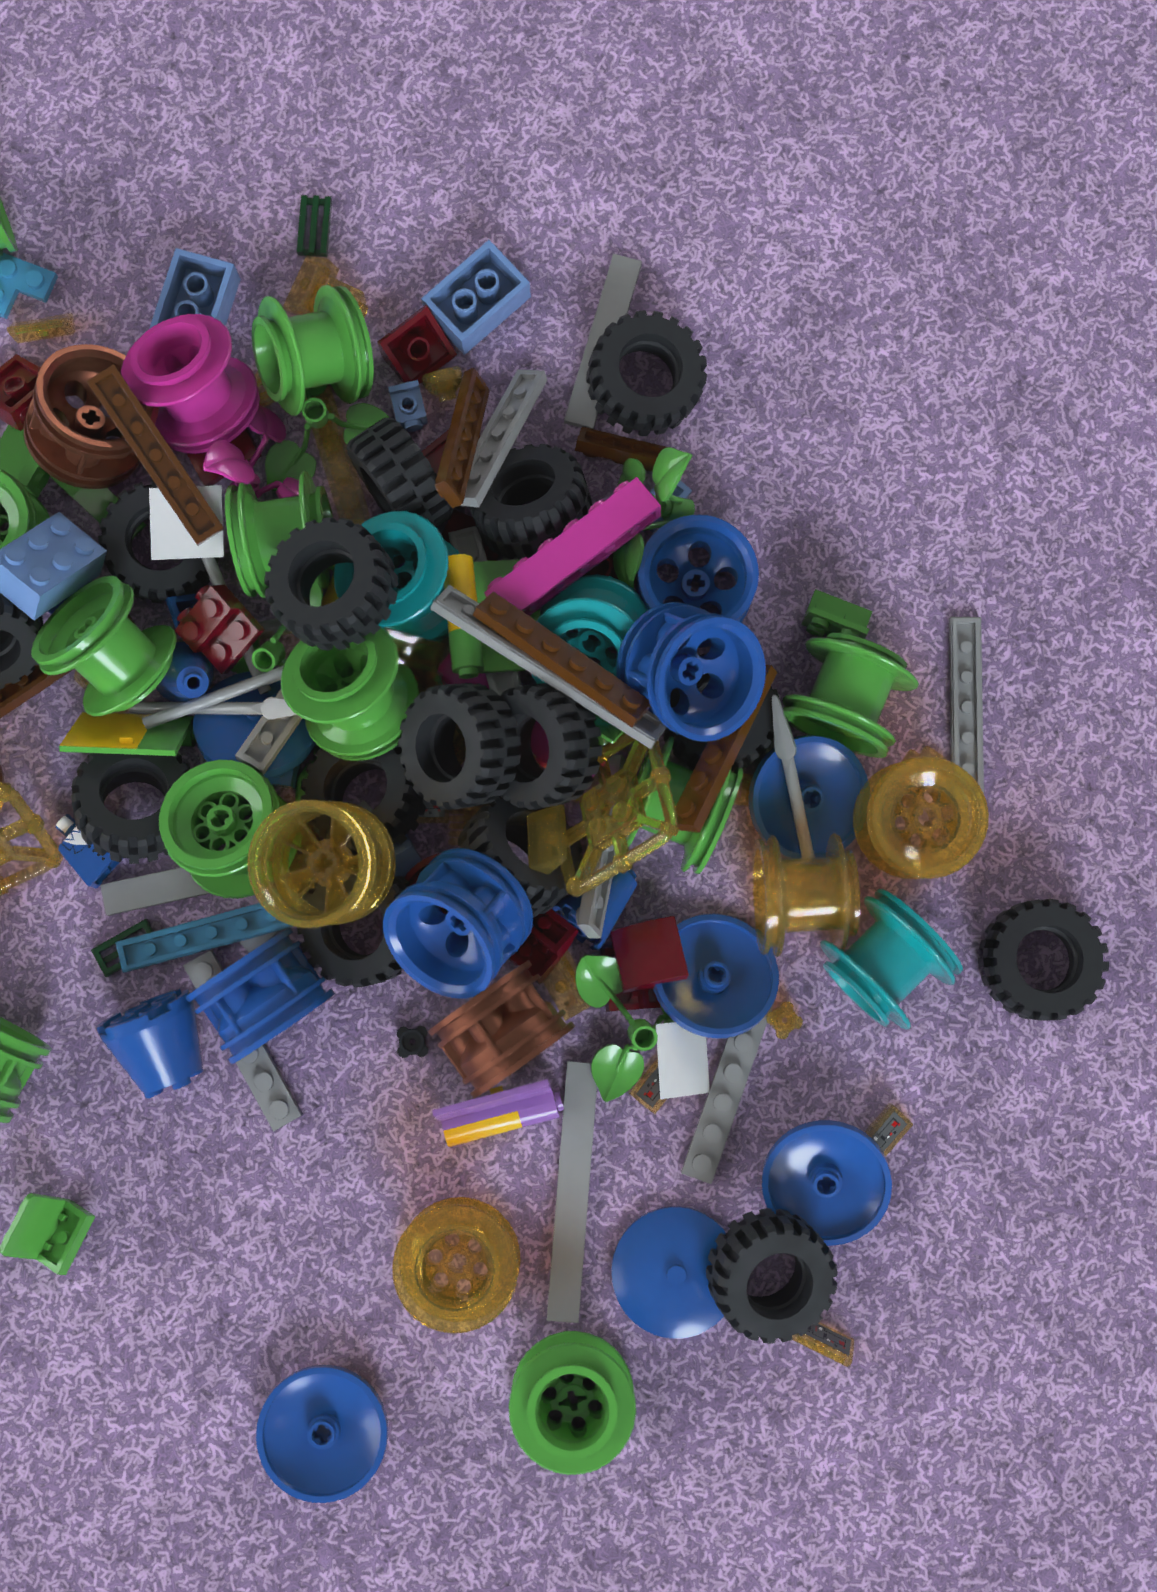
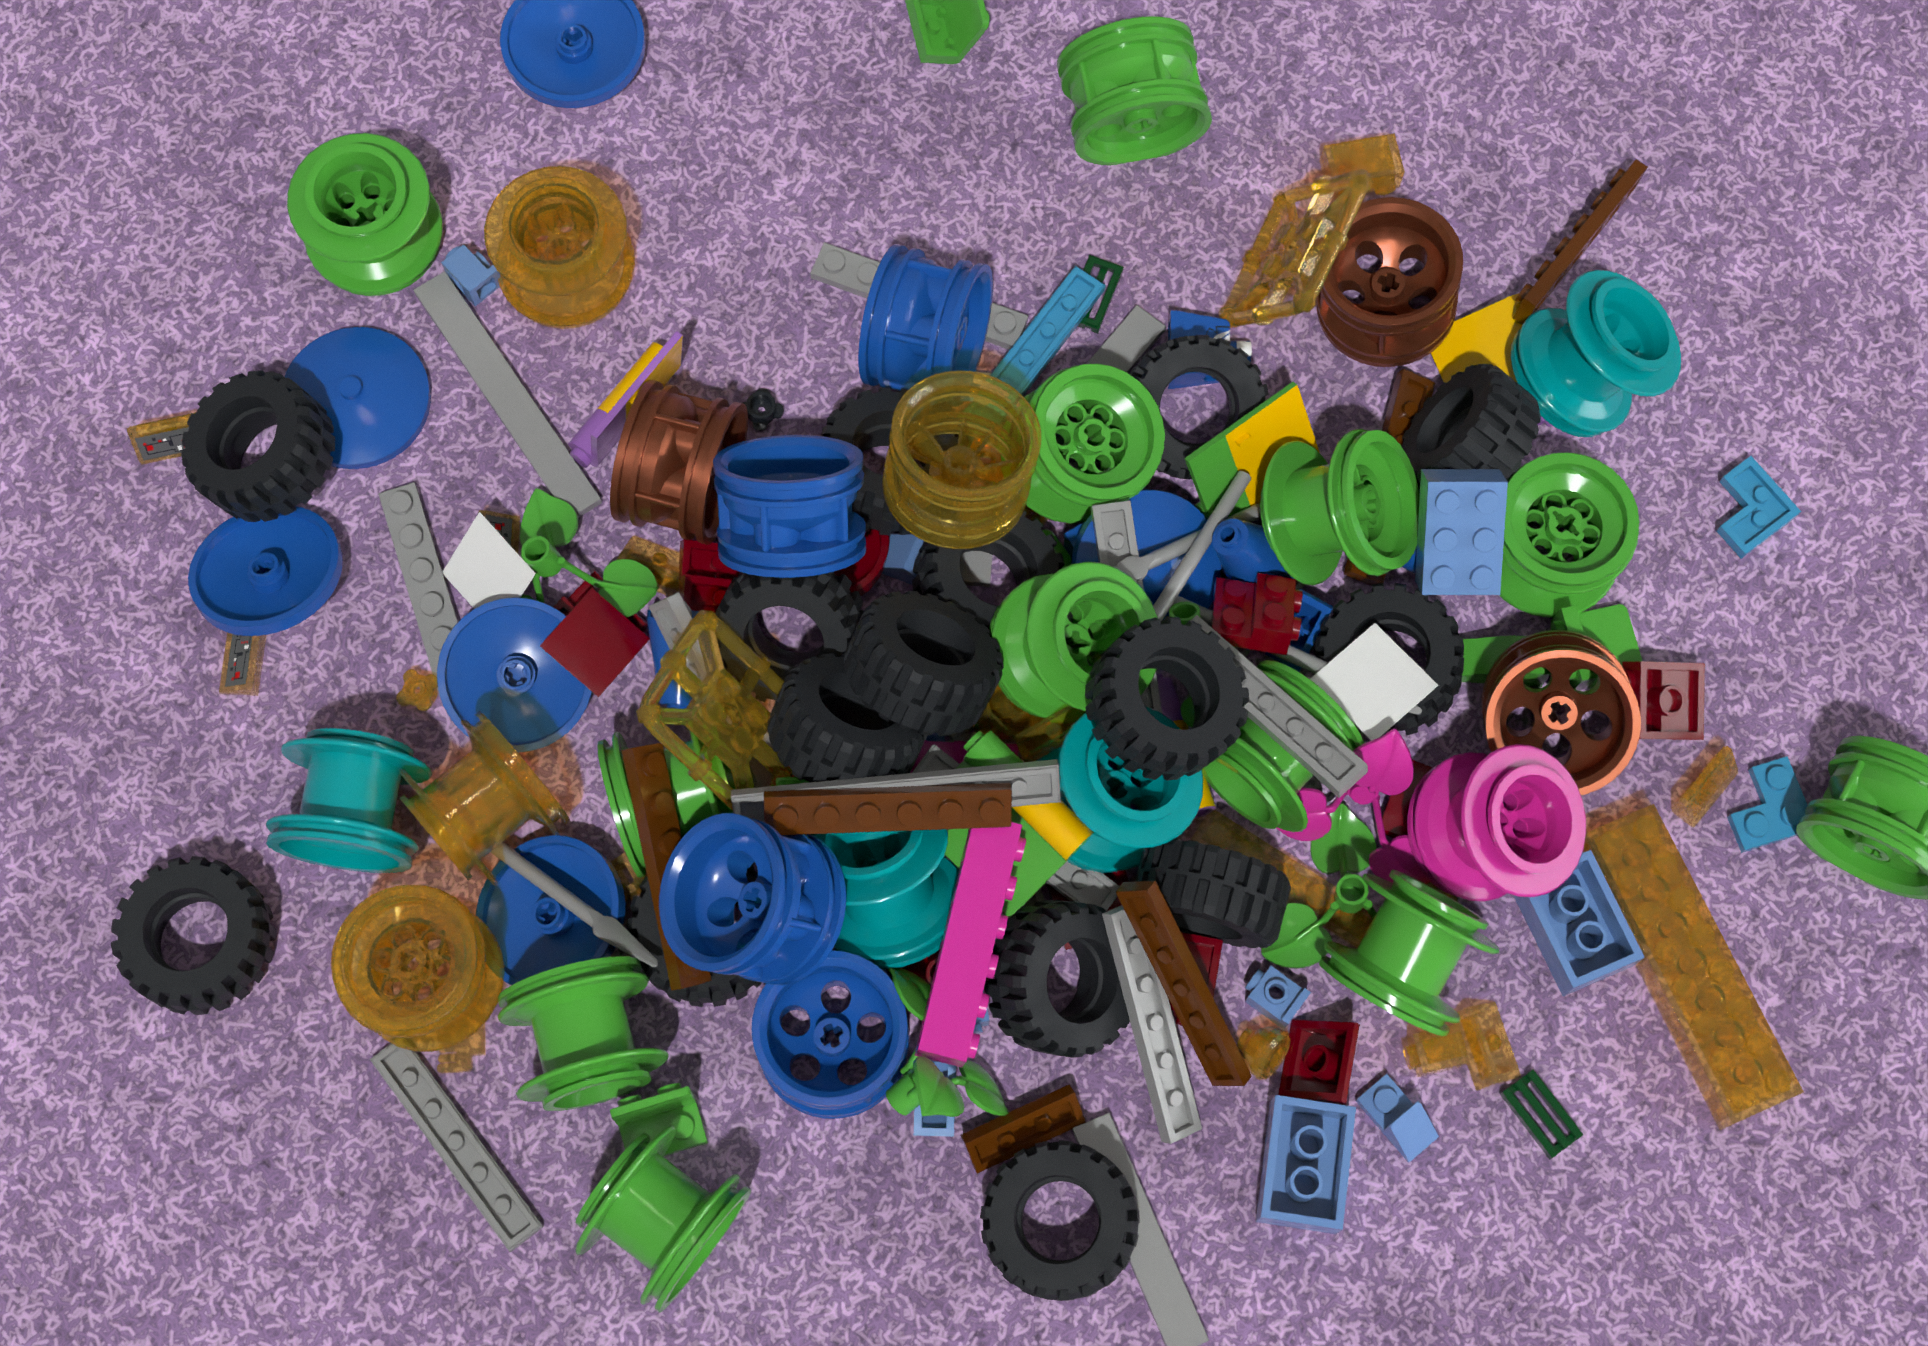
camera: 140 degrees right, 10 degrees down
(153, 224) = (1692, 971): none -> clear yellow brick
(155, 455) = (1454, 708): reddish brown plate -> none
(156, 1042) = (993, 226): blue cone -> none
(266, 533) = (1295, 728): none -> light grey plate
(398, 289) = (1398, 1118): none -> medium blue slope
(530, 1303) = (471, 274): none -> medium blue brick
(547, 839) = (768, 645): clear yellow slope -> none
(882, 547) = (659, 1215): none -> bright green wheel

